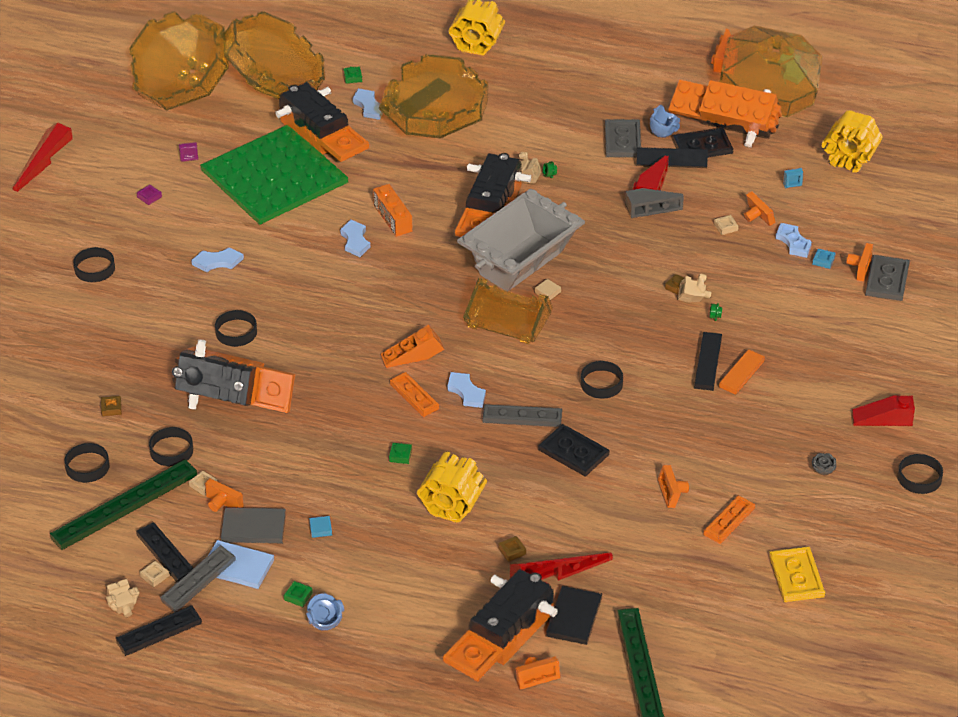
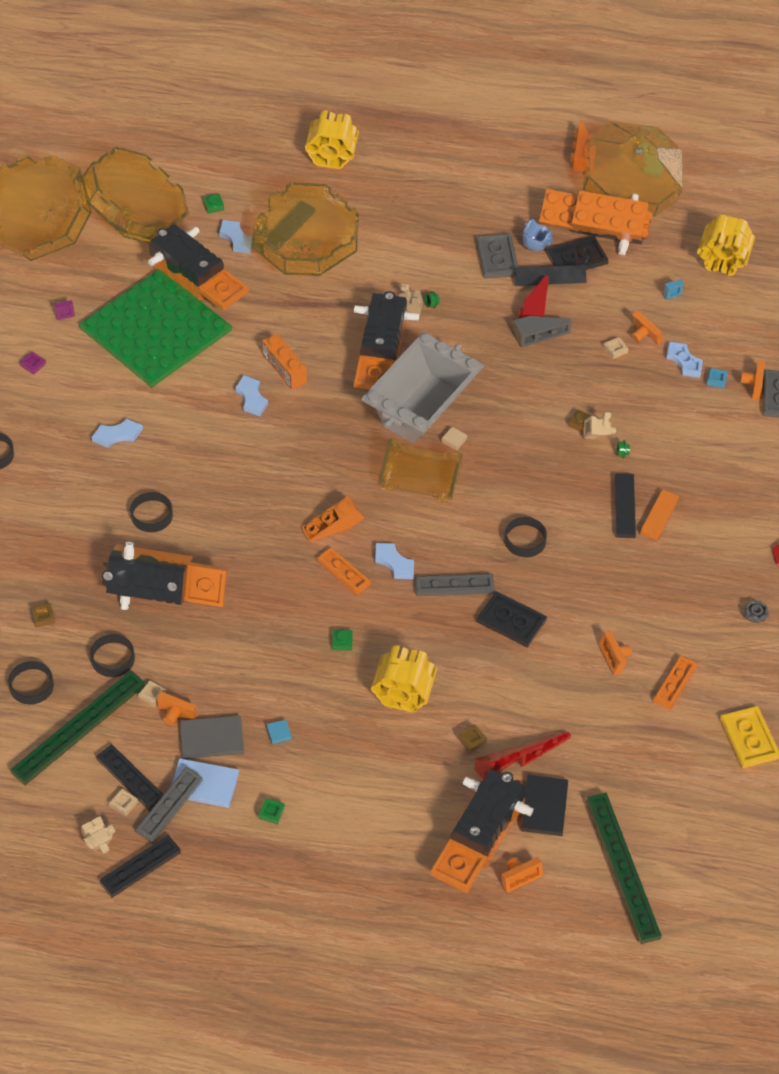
camera: 10 degrees left, 10 degrees up
(324, 612) = (303, 830): medium blue cap -> none

